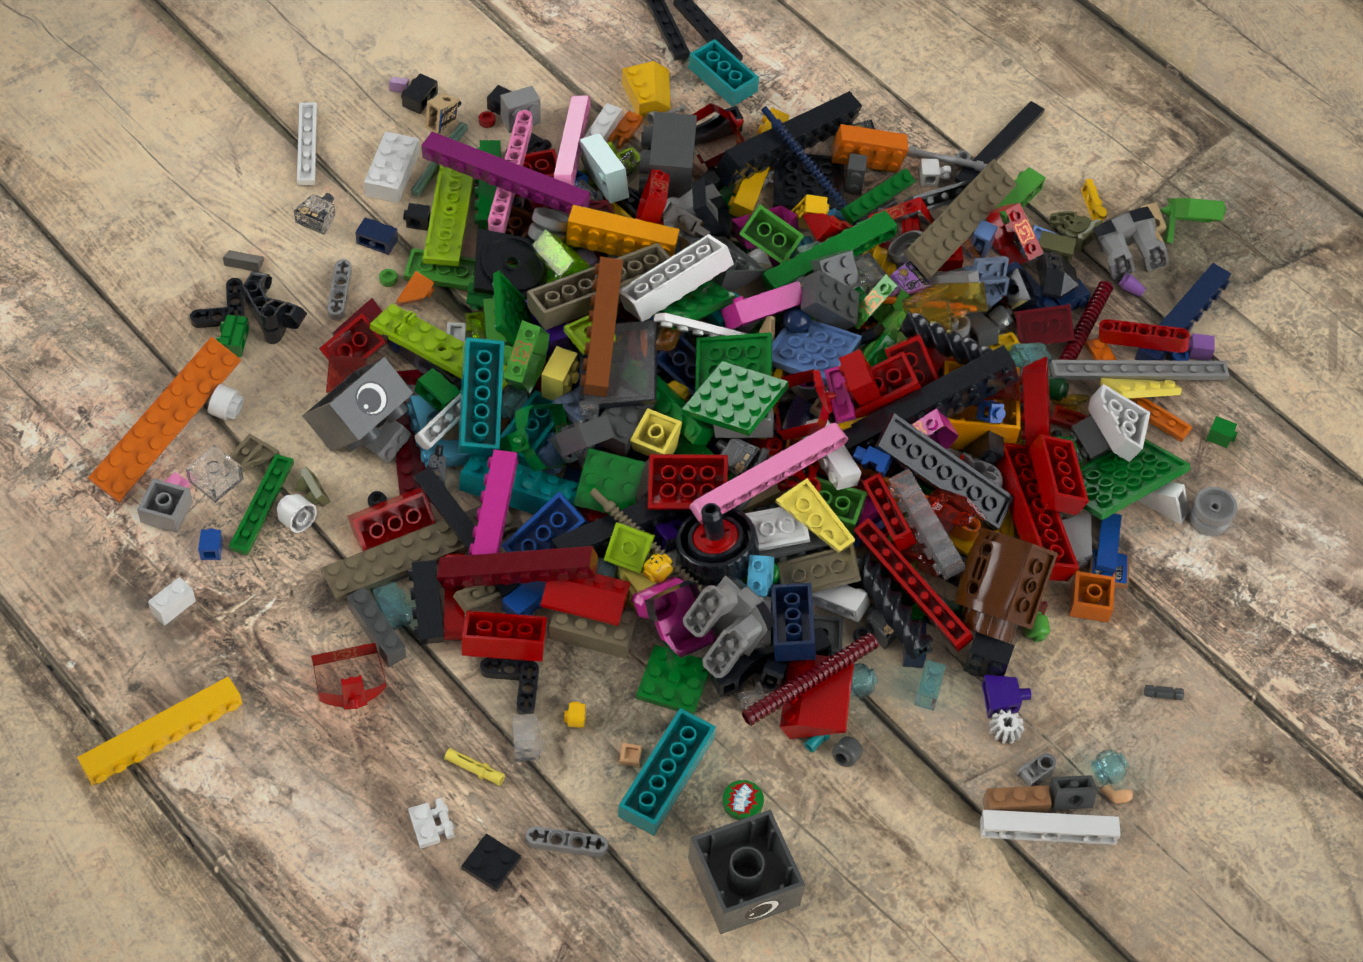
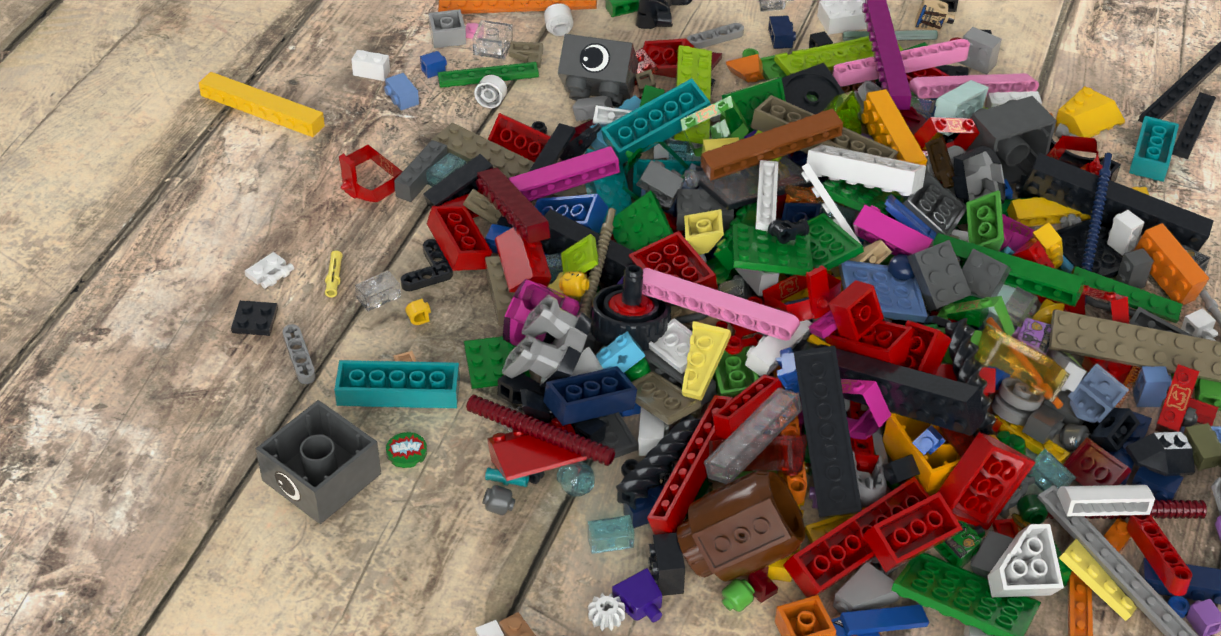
camera: 65 degrees right, 10 degrees down
(235, 591) = (401, 91): none -> medium blue brick
(310, 481) = (522, 92): olive tile -> none
(666, 364) = (766, 194): none -> white plate
(728, 373) = (787, 231): none -> black connector
(747, 283) = (907, 217): none -> blue piece
(820, 150) = (1125, 232): none -> white brick
(1087, 336) = (1106, 500): none -> white brick

